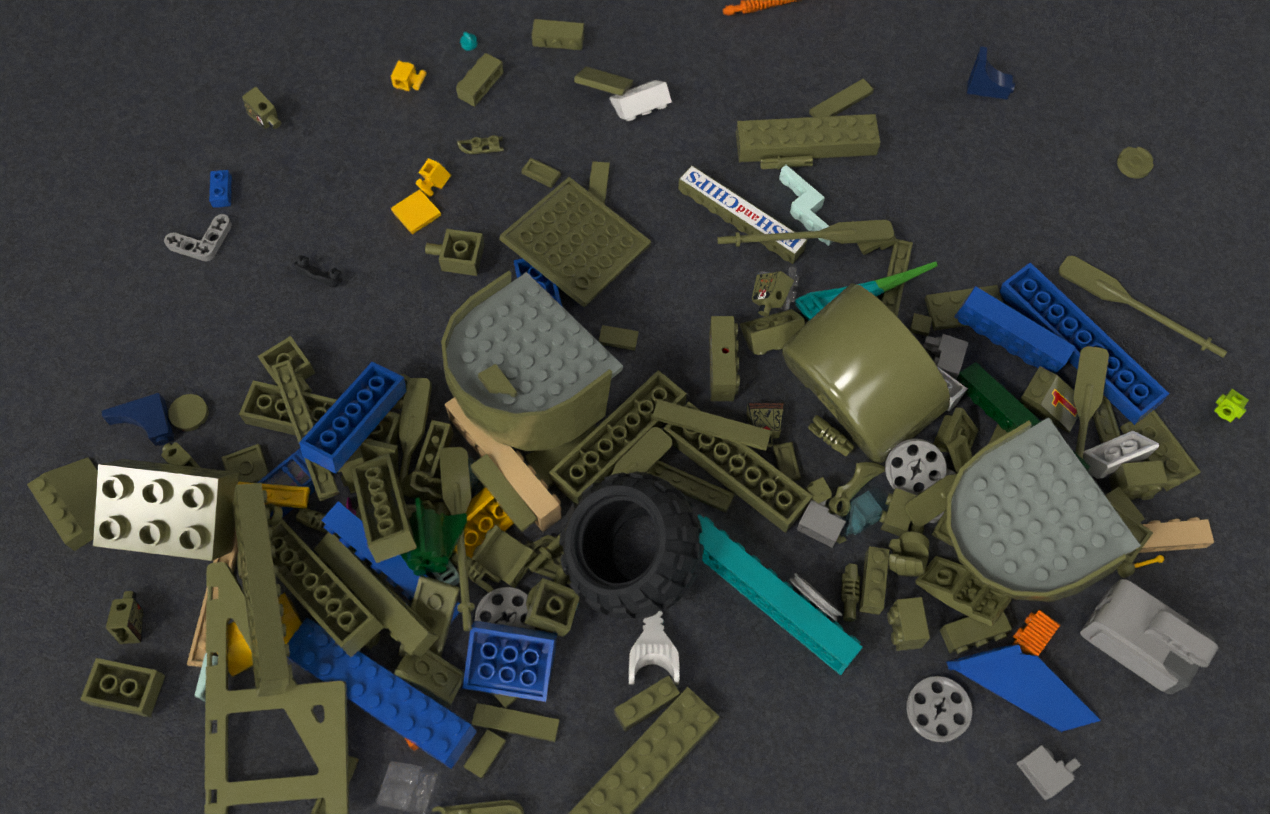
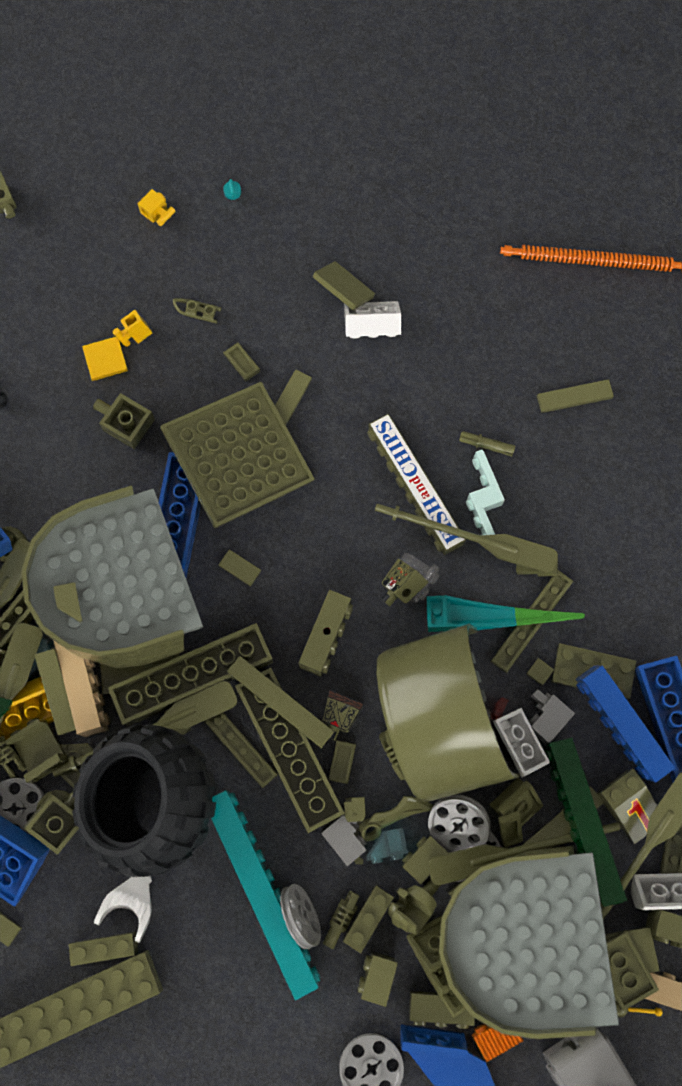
camera: 20 degrees right, 10 degrees up
(479, 79) = (224, 237): olive brick -> none
(558, 34) = (322, 215): olive brick -> none
(771, 331) = (390, 624): olive slope -> none
(808, 136) = (520, 425): olive brick -> none

